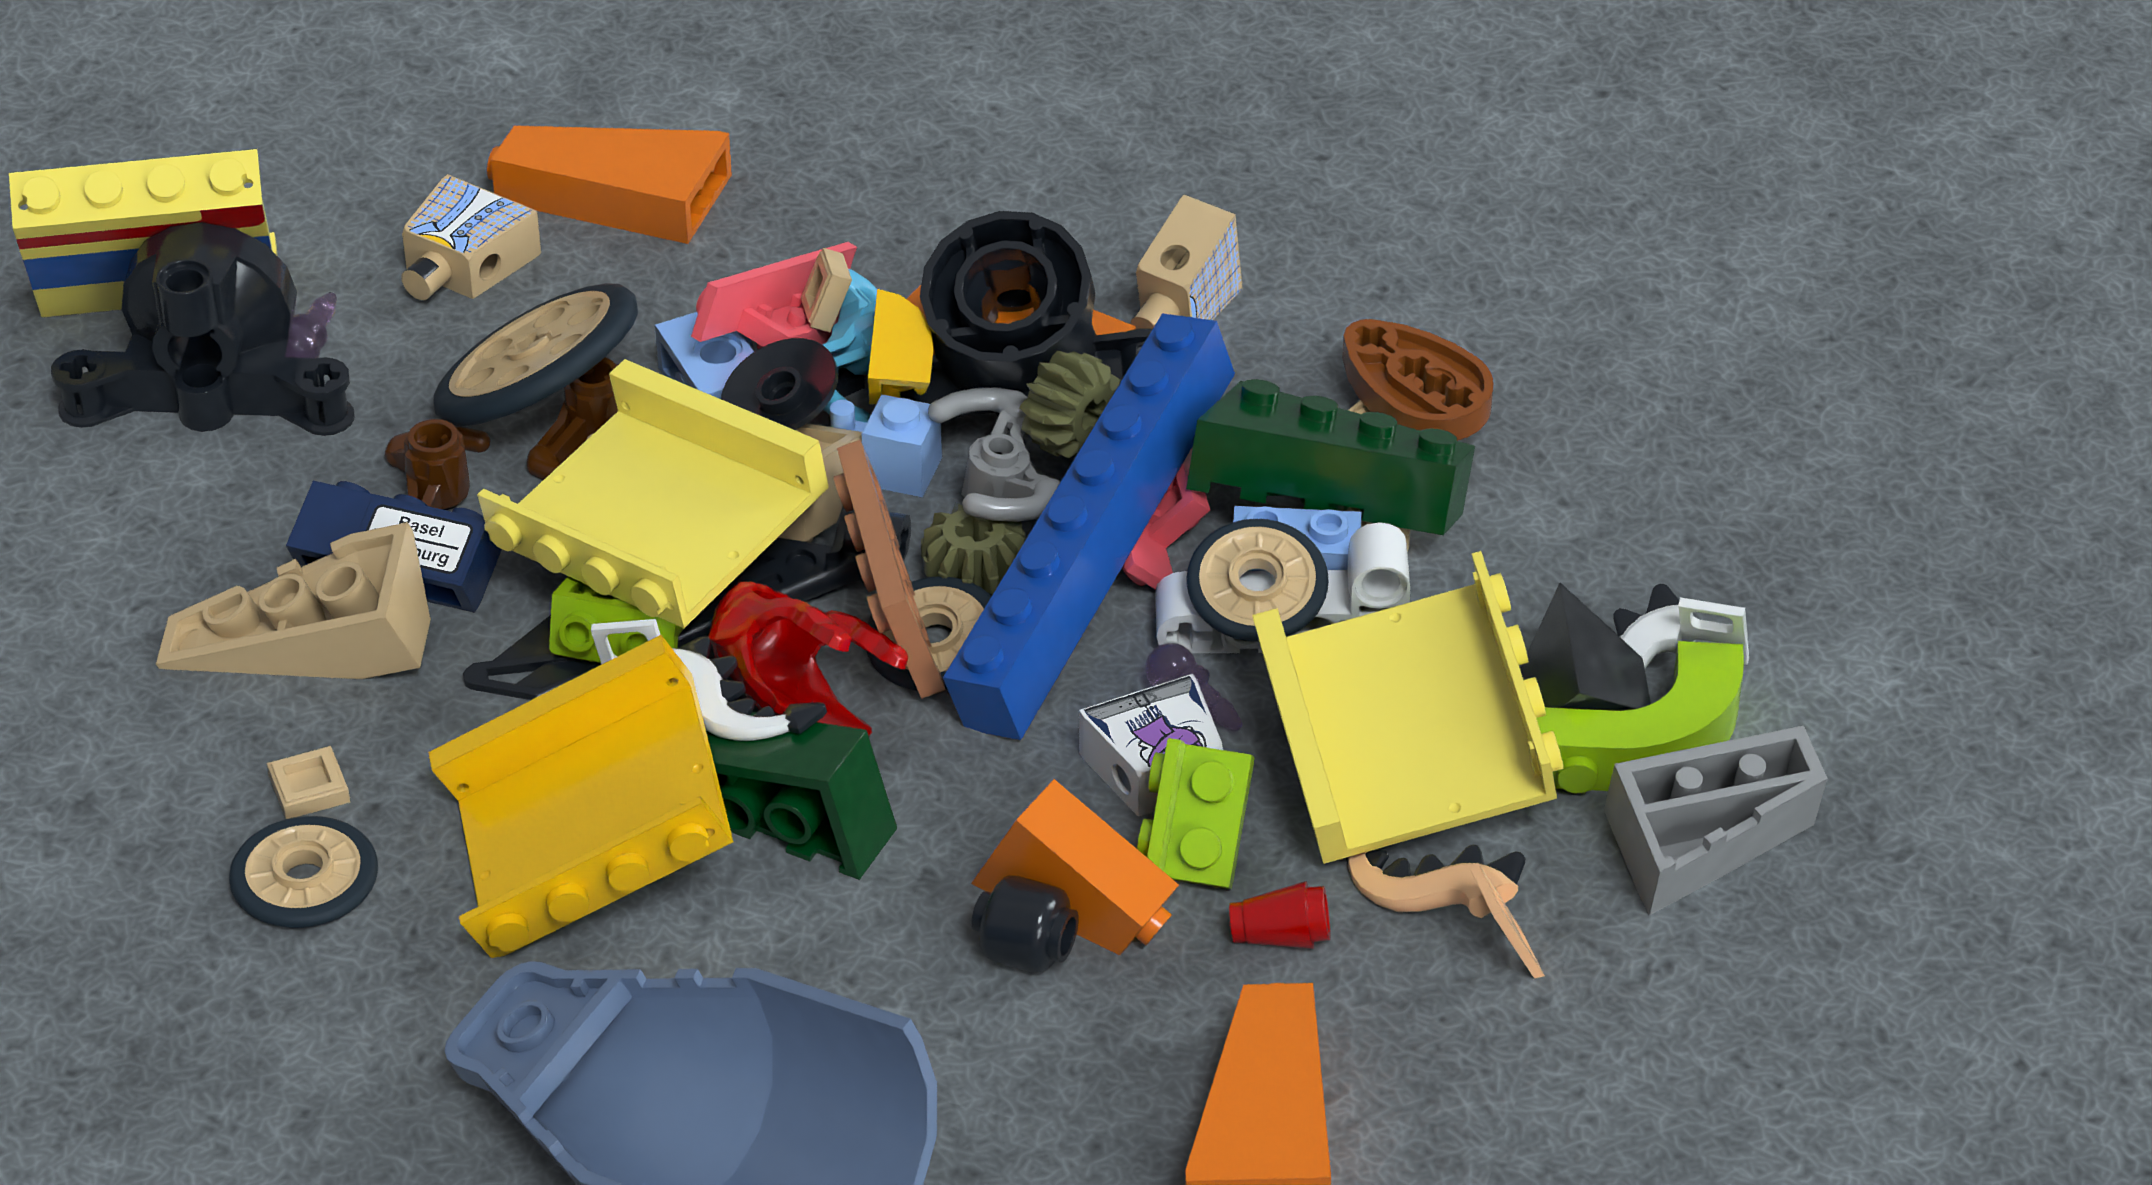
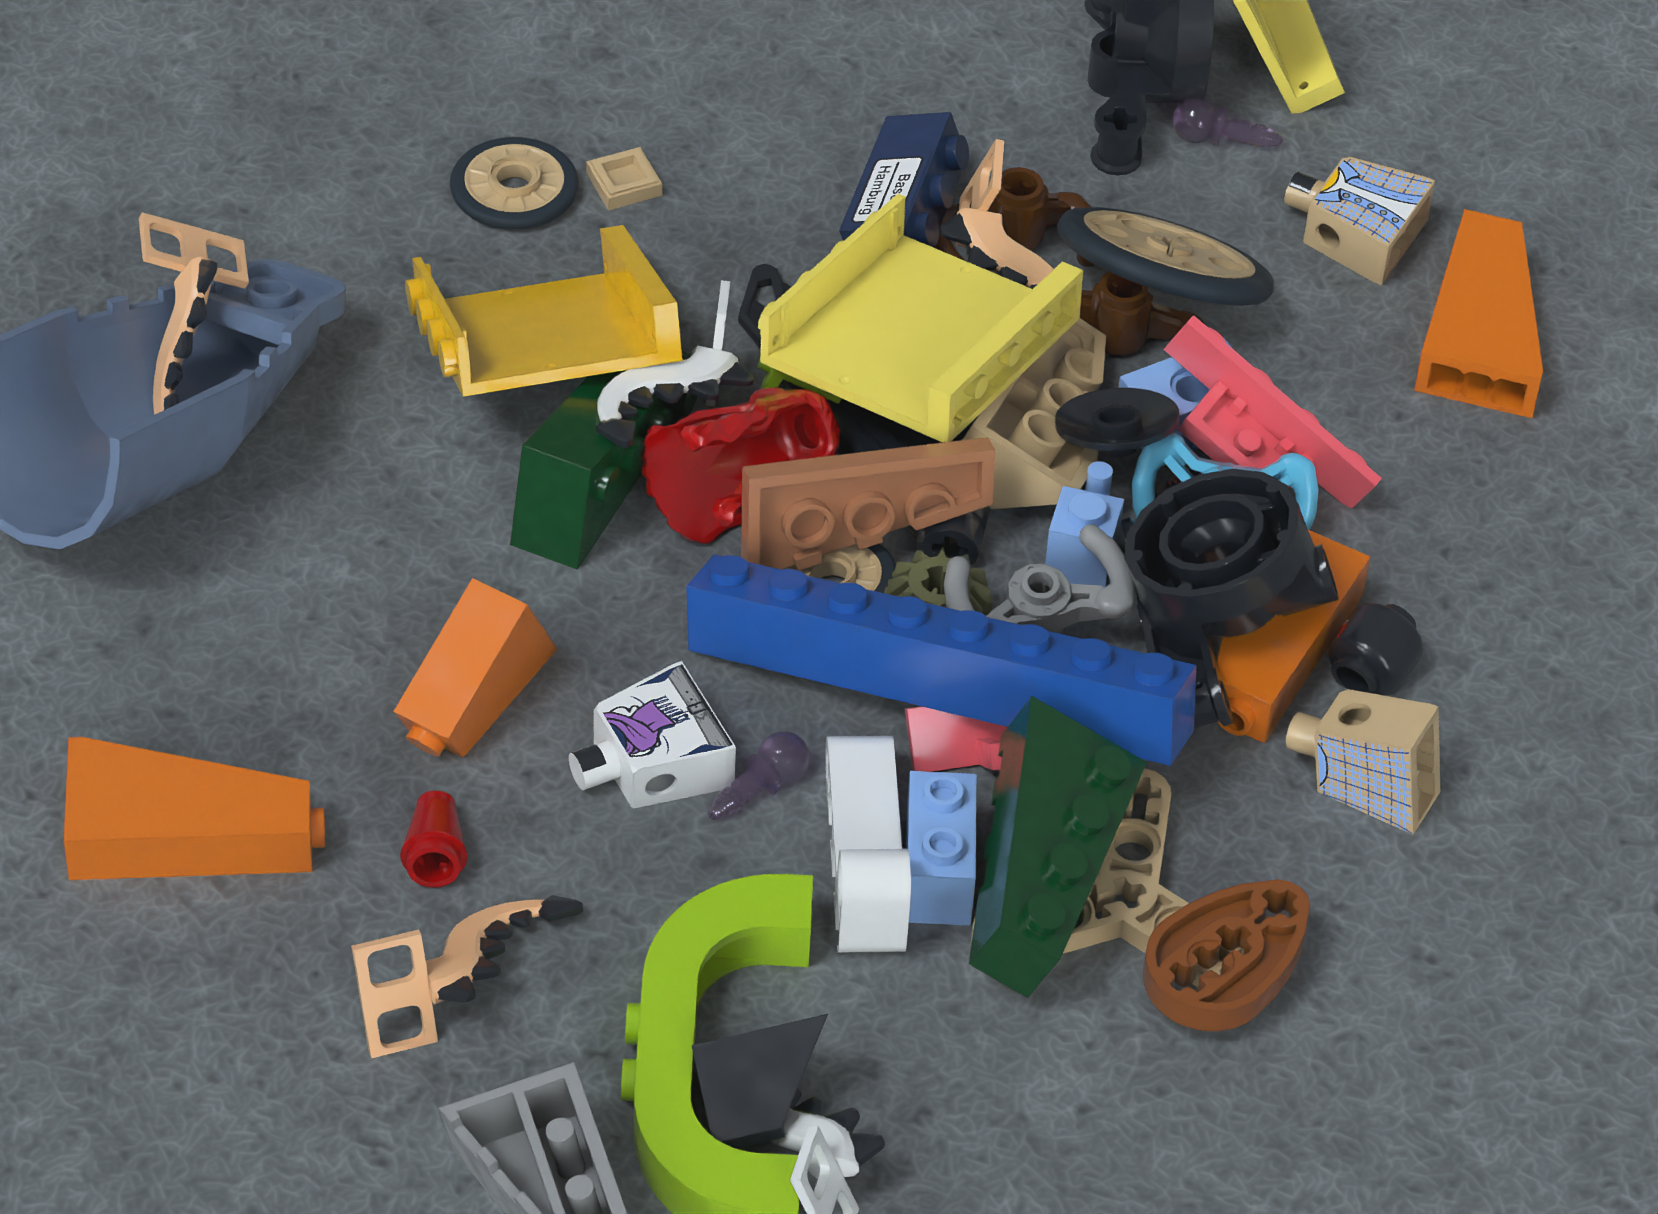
camera: 85 degrees right, 5 degrees up
(333, 618) = (810, 154): tan wedge -> none
(490, 469) = (985, 231): none -> light nougat piece
(588, 1101) = (191, 294): none -> light nougat piece
(826, 289) = (1262, 440): tan tile -> none
(899, 348) = (1144, 480): yellow brick -> none
(1025, 923) = (408, 634): black head -> none
(1067, 401) = (1100, 611): olive gear -> none
(1197, 812) = (545, 748): lime bracket -> none
(1249, 545) = (859, 822): tan wheel -> none
(1411, 717) = (661, 894): light yellow panel -> none

